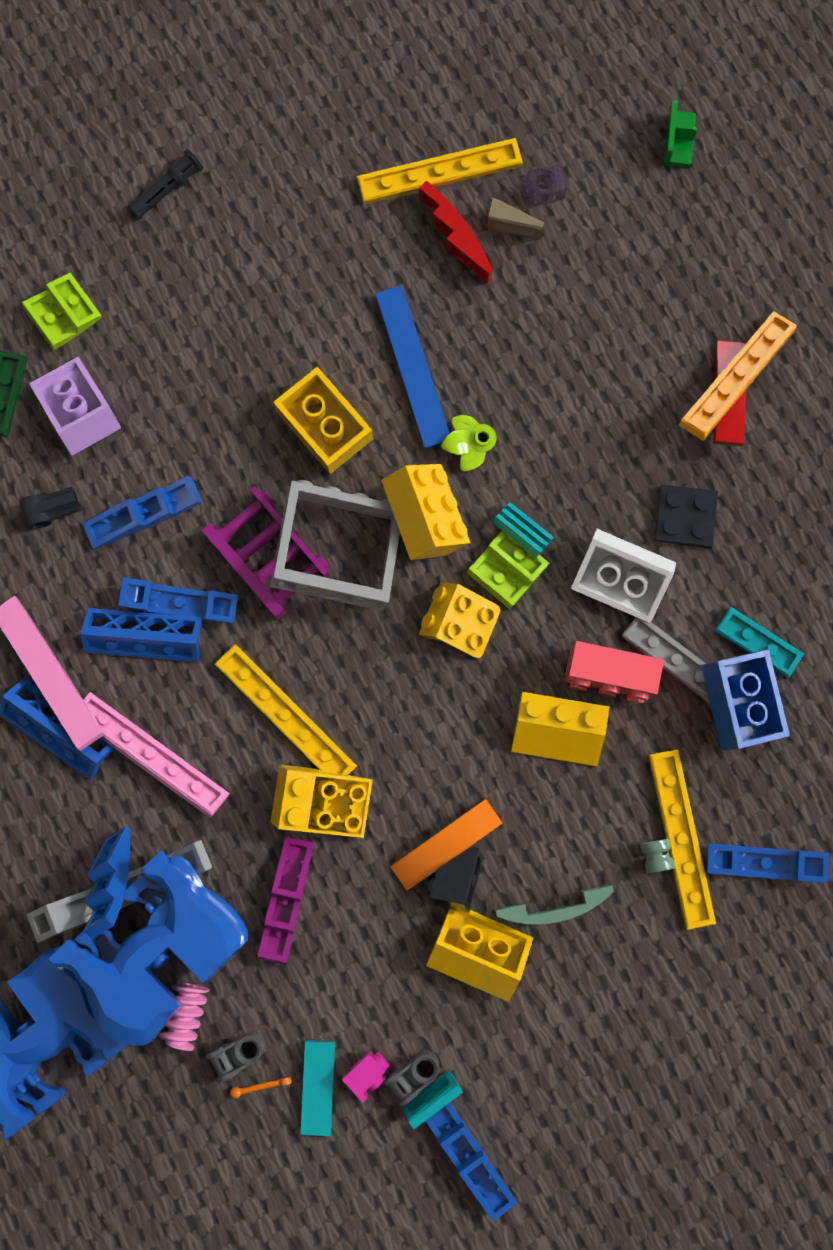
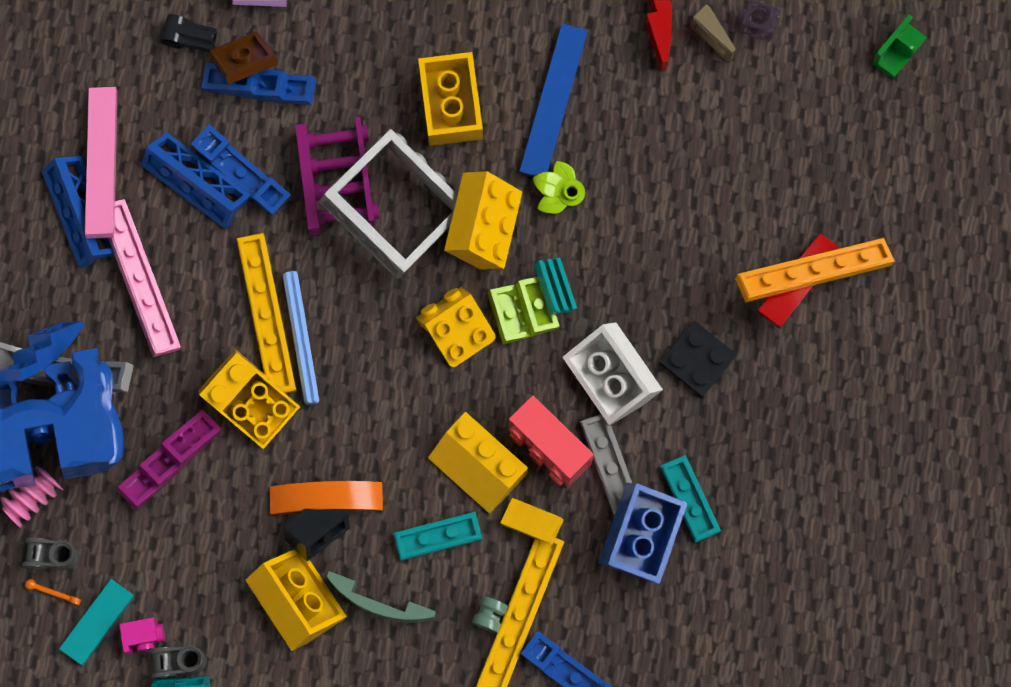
camera: 30 degrees right, 5 degrees down
(113, 498) = (243, 57): none -> reddish brown tile
(330, 716) = (301, 338): none -> light blue axle
(565, 815) = (438, 536): none -> teal tile
(639, 750) = (532, 521): none -> yellow tile

